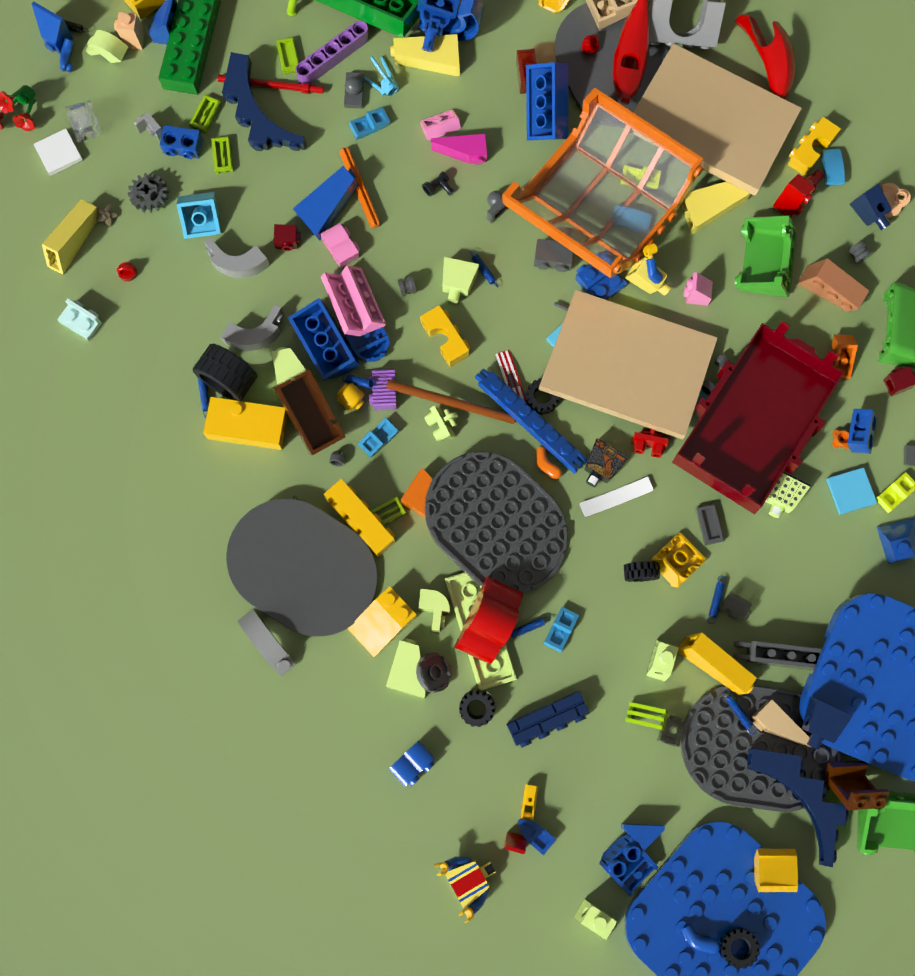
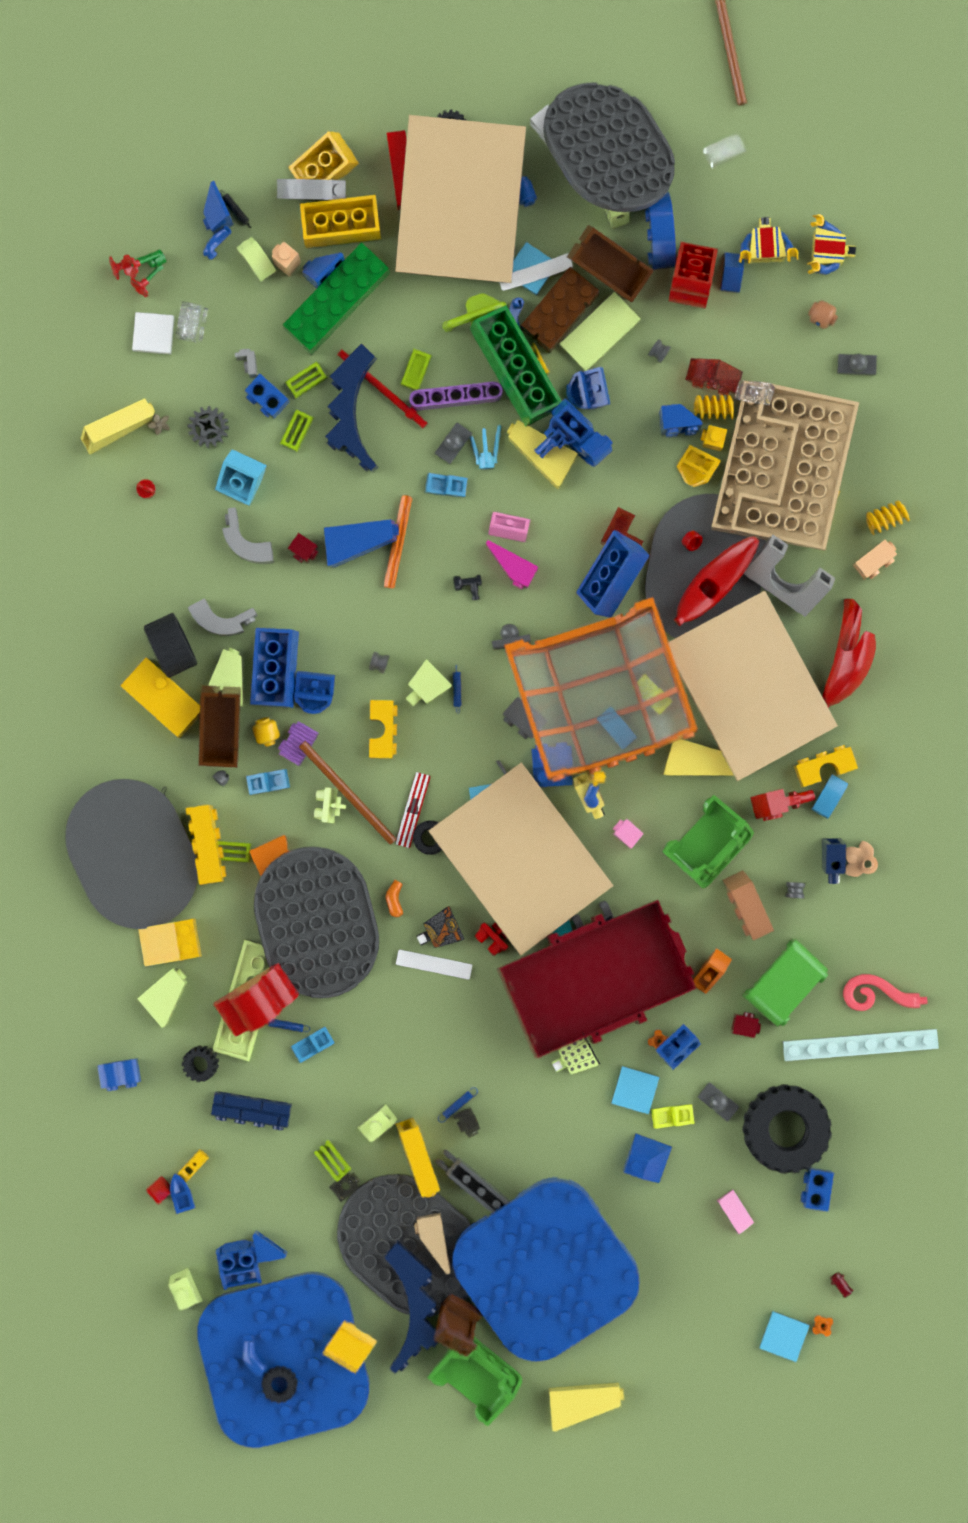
camera: 35 degrees right, 10 degrees up
(80, 320) = (78, 509): light aqua bracket -> none
(204, 395) = (142, 650): blue piece -> none
(266, 642) = (62, 897): light grey arch -> none
(340, 245) = (345, 586): bright pink brick -> none
(353, 301) = (322, 648): bright pink slope -> none
(359, 381) = (281, 723): blue piece -> none
(433, 672) = (183, 1012): dark grey tile -> none
(434, 602) = (224, 958): yellowish green brick -> none
(467, 882) = (103, 1195): torso -> none
(530, 420) = (405, 852): blue hinge -> none
(641, 571) = (408, 1042): black tyre -> none
(678, 560) = (448, 1051): yellow slope -> none
(710, 524) = (496, 1039): dark grey tile -> none
(739, 712) = (410, 1206): blue piece -> none
(823, 722) = (464, 1261): dark blue torso -> none

